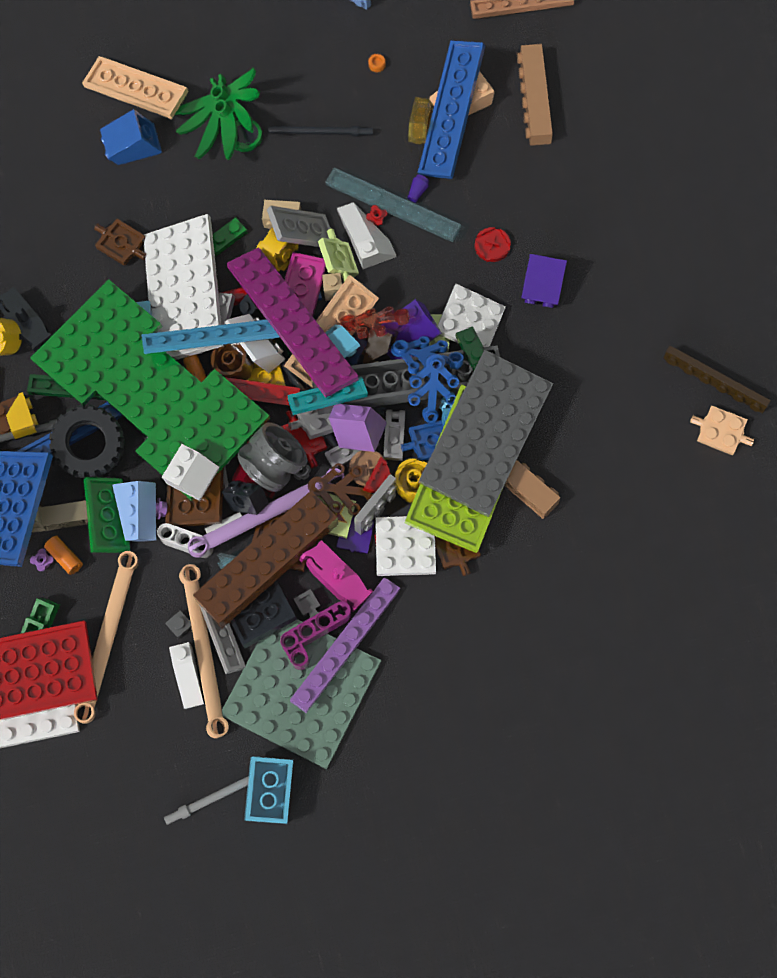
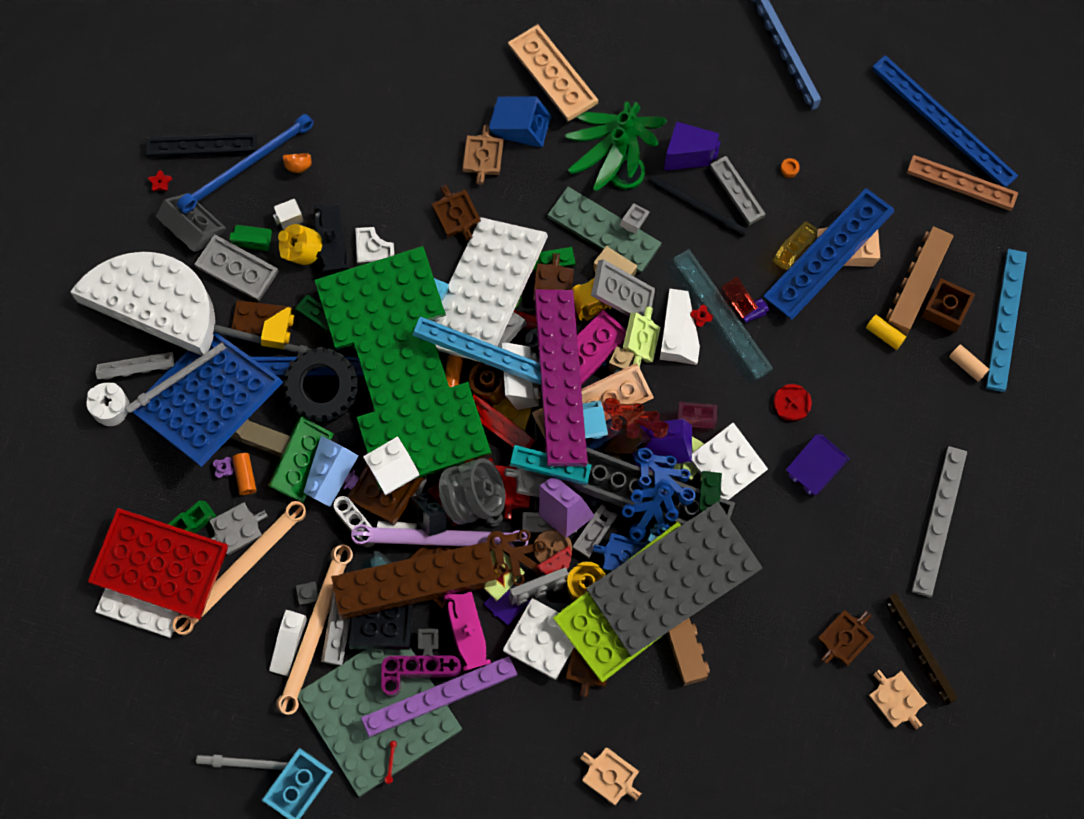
camera: 25 degrees right, 0 degrees up
(61, 307) = (371, 247): none -> white tile
(84, 603) = (237, 527): none -> light grey plate
(115, 183) = (483, 155): none -> medium nougat plate
(232, 248) = (552, 276): none -> reddish brown plate
(251, 189) = (602, 228): none -> sand green plate
(274, 167) = (634, 218): none -> light grey plate
(288, 85) = (691, 147): none -> dark purple slope
(344, 738) = (388, 779): none -> red hinge
(345, 101) = (737, 190): none -> light grey plate
(399, 182) = (739, 296): none -> clear red slope
(425, 292) = (698, 415): none -> clear pink brick
(529, 626) = (610, 776): none -> light nougat plate
(533, 148) = (886, 332): none -> yellow piece
(570, 100) = (948, 305): none -> reddish brown brick
(614, 137) = (969, 363): none -> light nougat piece
(622, 90) = (1006, 320): none -> dark azure plate
(651, 405) = (845, 637): none -> reddish brown plate
(667, 273) = (939, 522): none -> light grey plate

